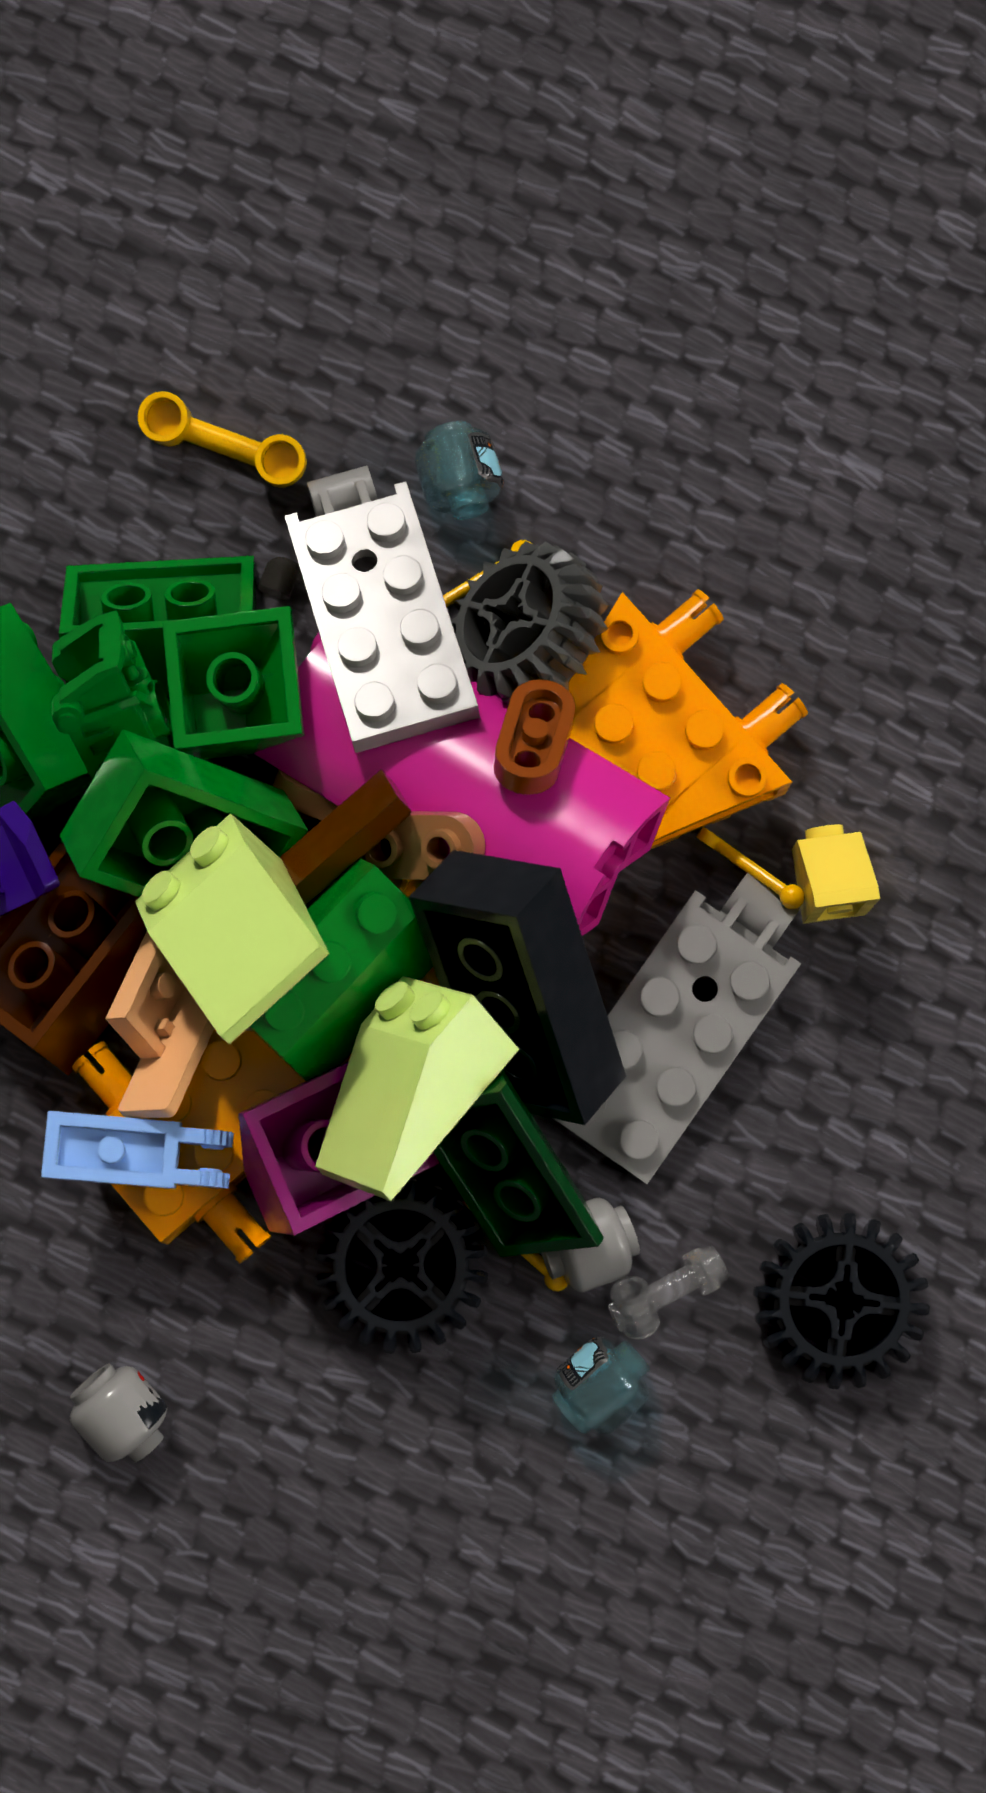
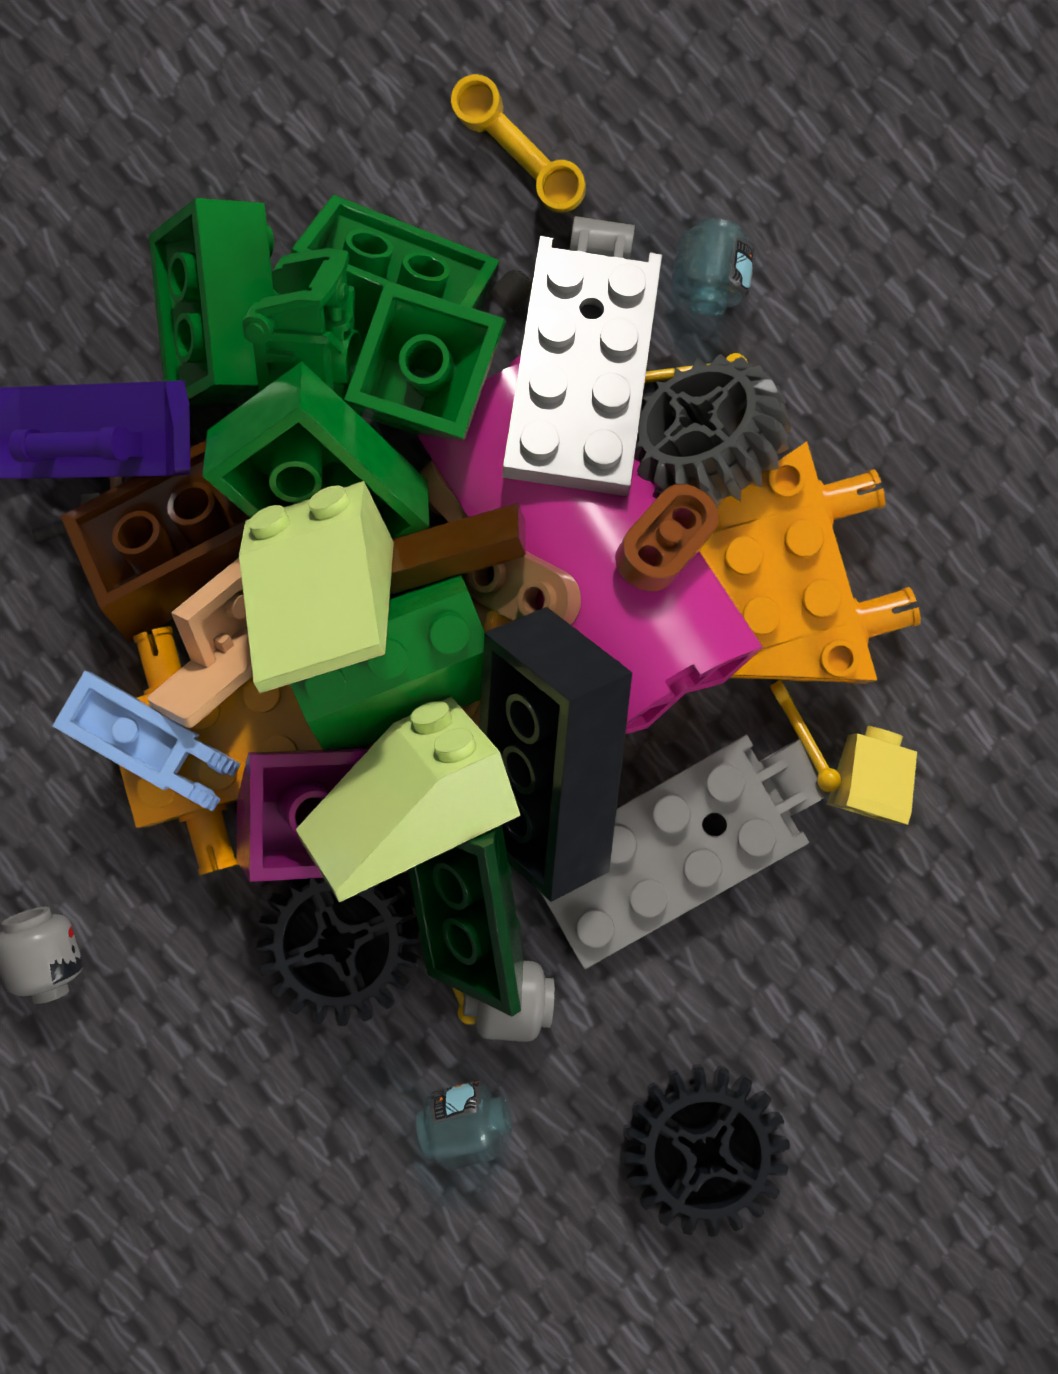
camera: 25 degrees right, 5 degrees up
(637, 1303) = (527, 1069): clear bar -> none

